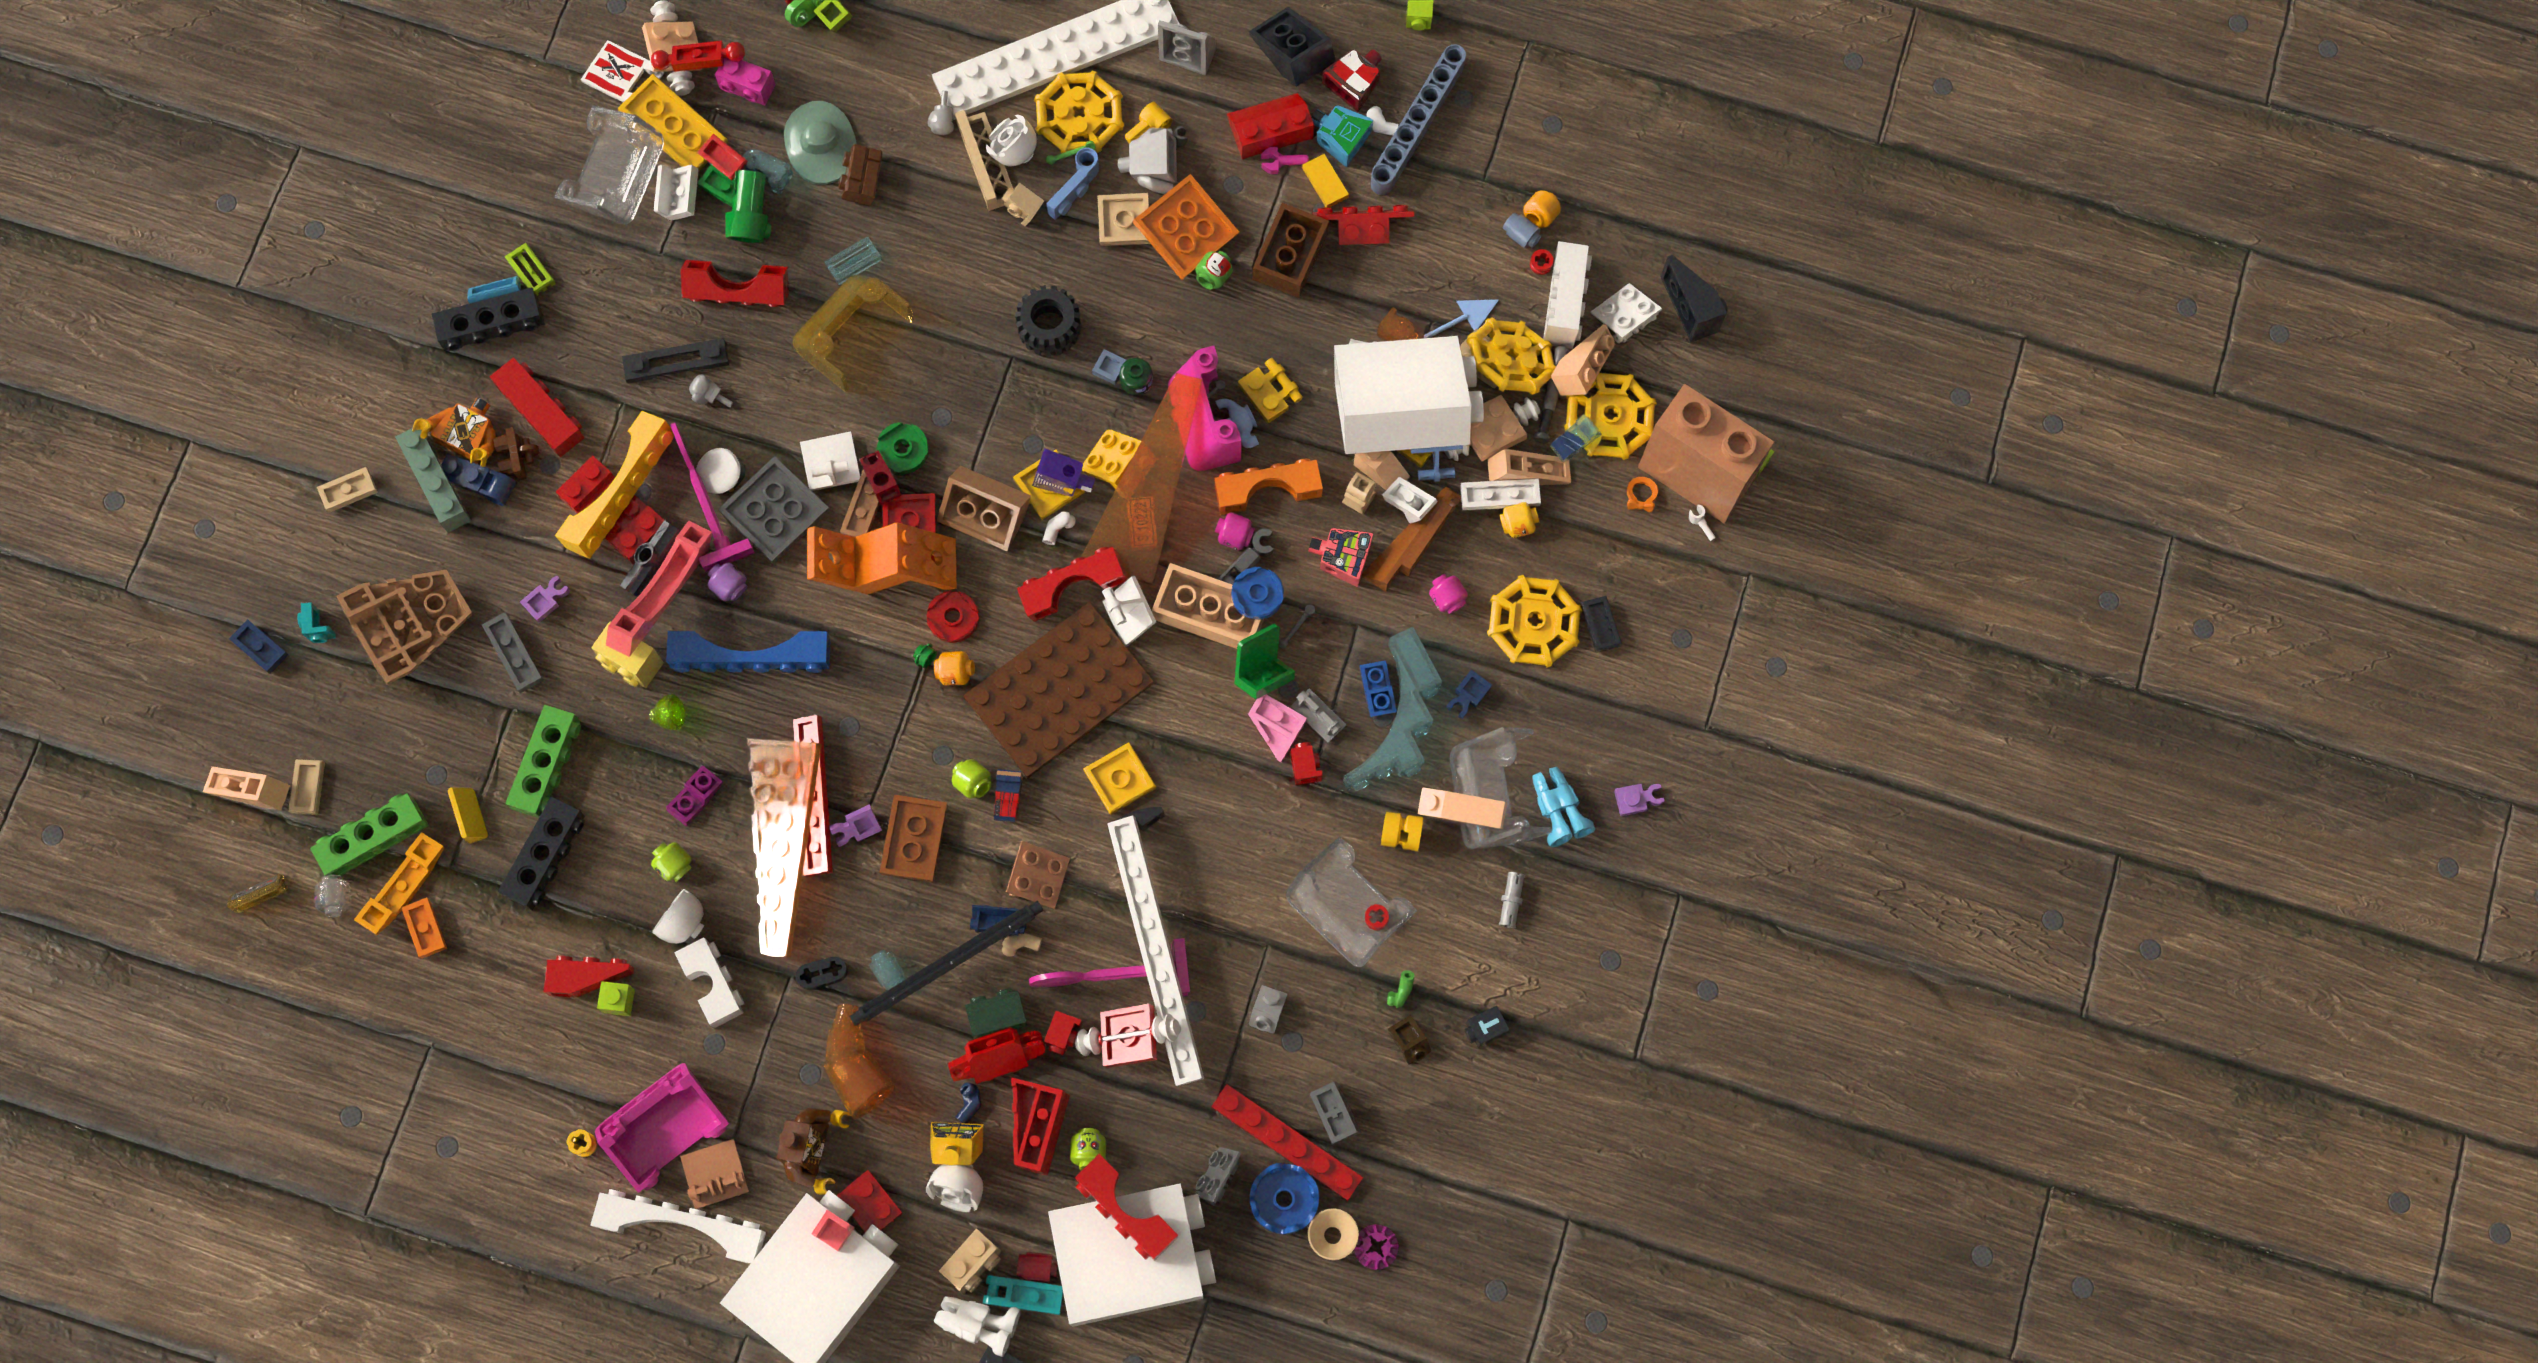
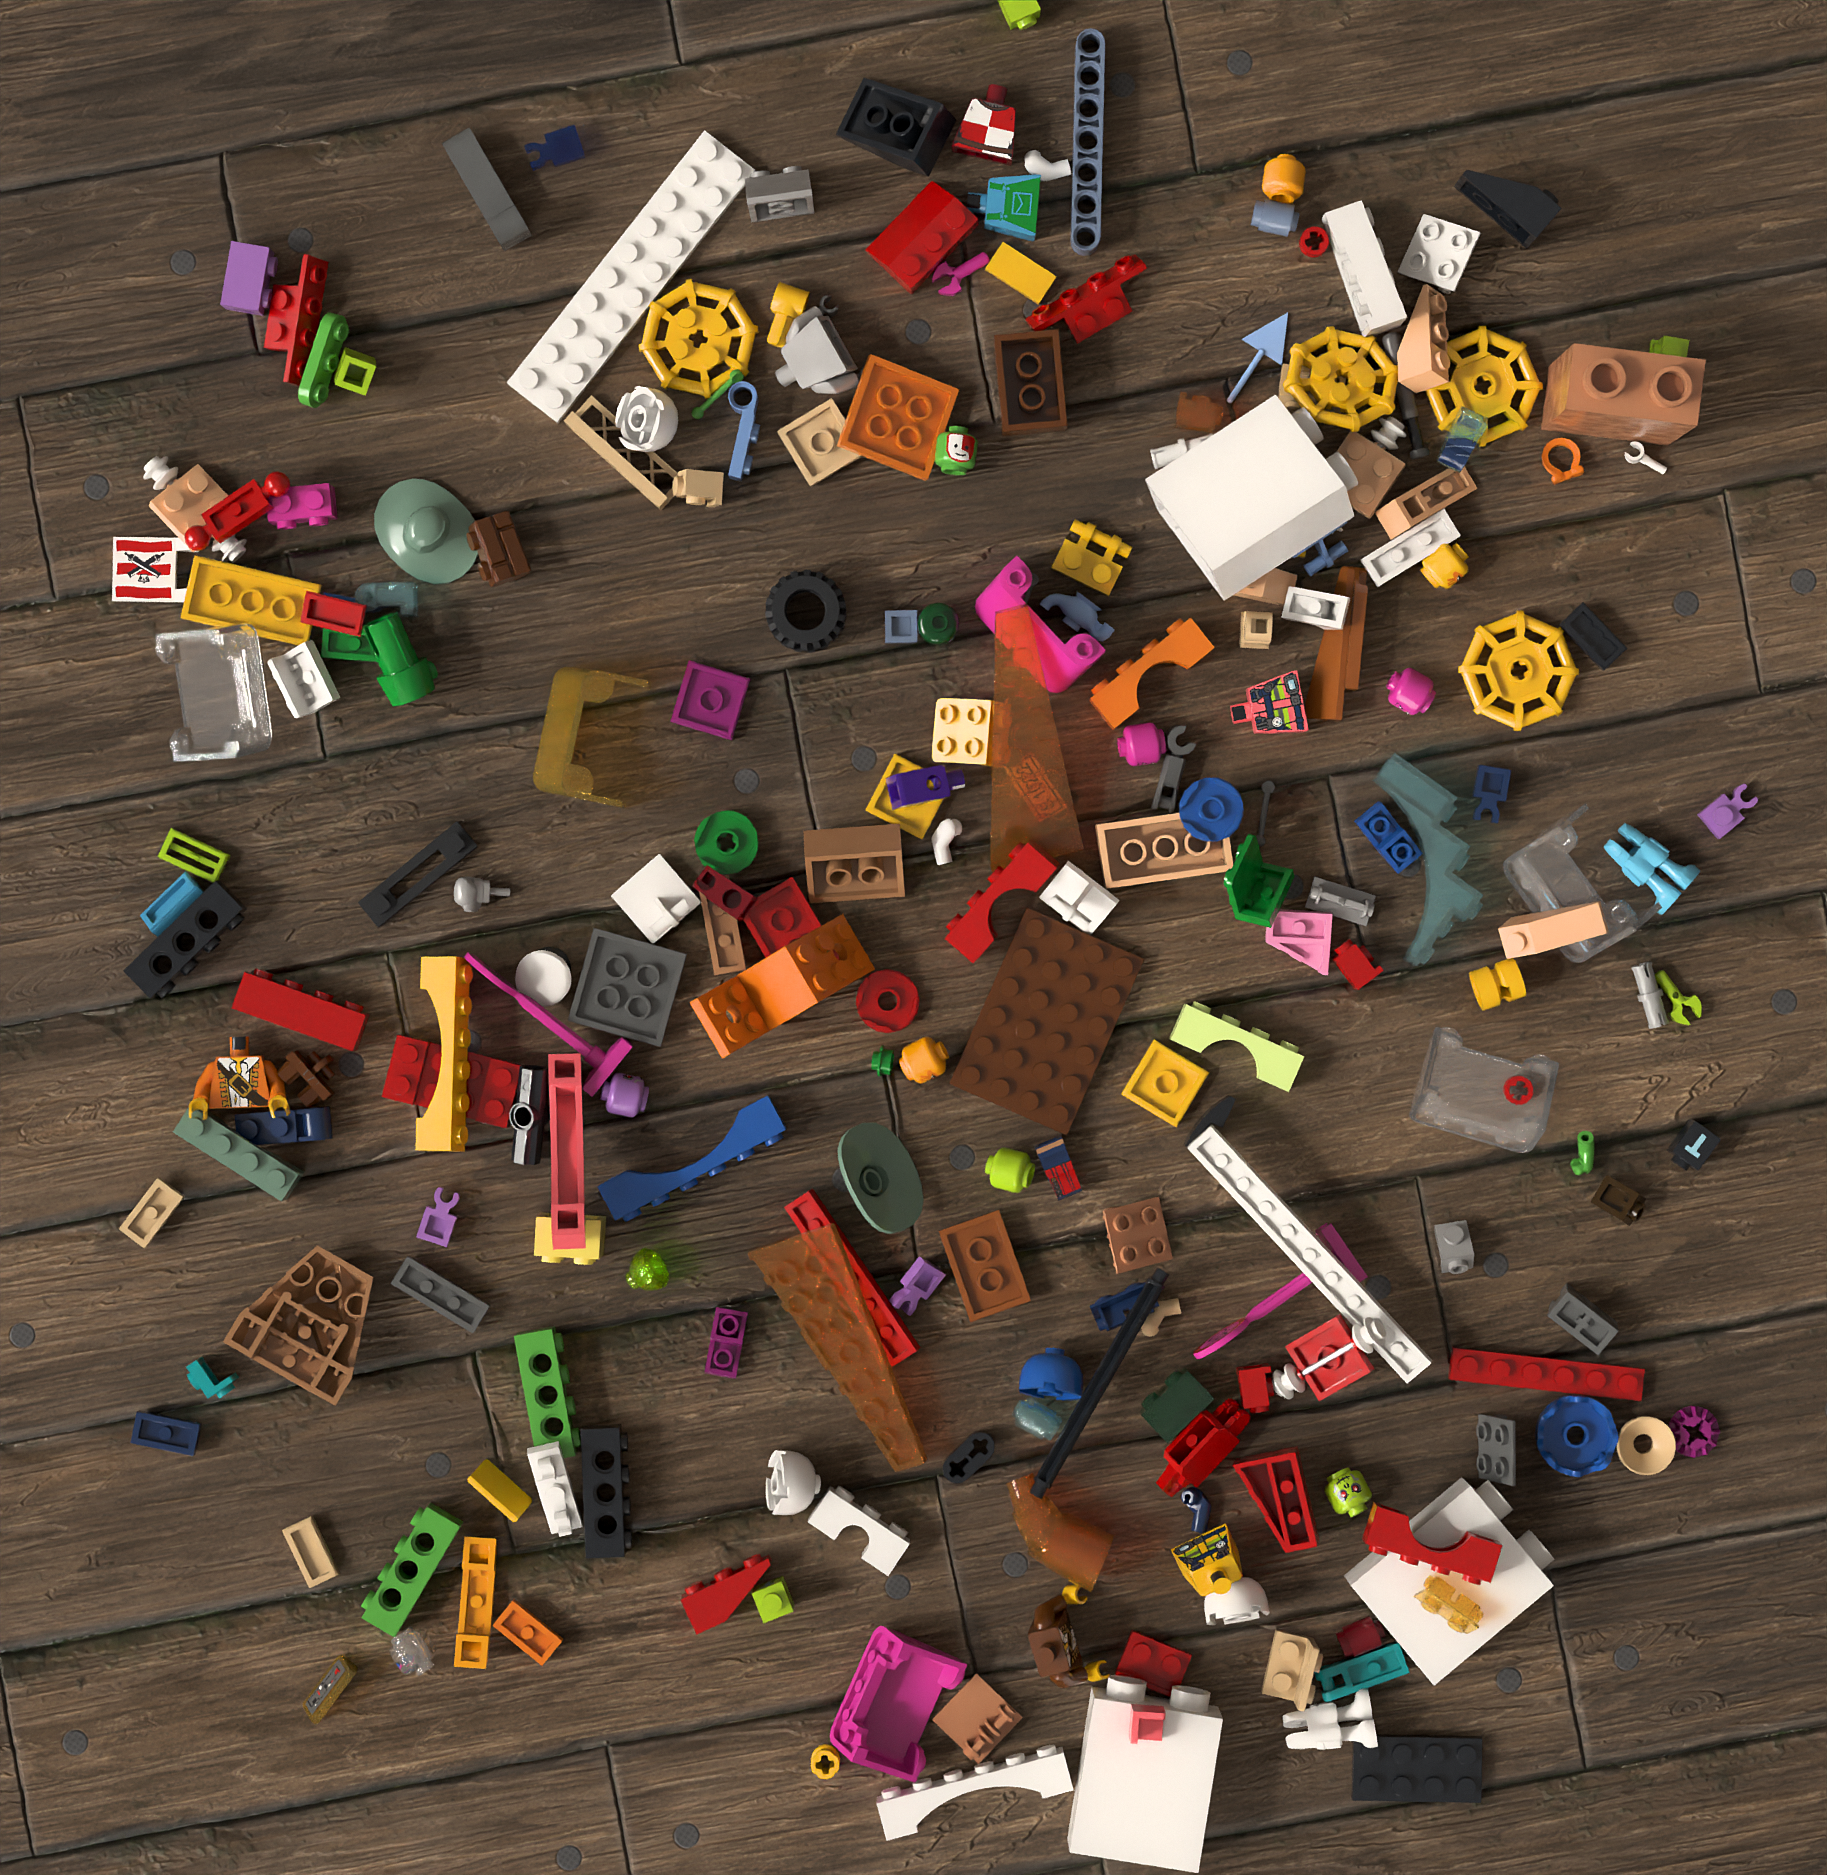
camera: 25 degrees left, 15 degrees up
(247, 788) = (250, 1588): light nougat slope -> none
(507, 829) = (555, 1488): none -> white plate
(671, 861) = (745, 1427): lime head -> none
(703, 282) = (401, 770): red arch -> none
(874, 731) = (880, 1177): none -> sand green hat
(875, 258) = (535, 645): clear light blue tile -> none
(915, 942) = (1051, 1376): none -> blue cylinder
(941, 118) = (548, 429): light grey piece -> none
(948, 349) = (710, 700): none -> magenta tile
(1117, 1277) = (1461, 1614): none -> clear yellow hinge
(1165, 751) = (1274, 1062): none -> yellowish green arch
(1531, 915) = (1678, 999): none -> lime bar

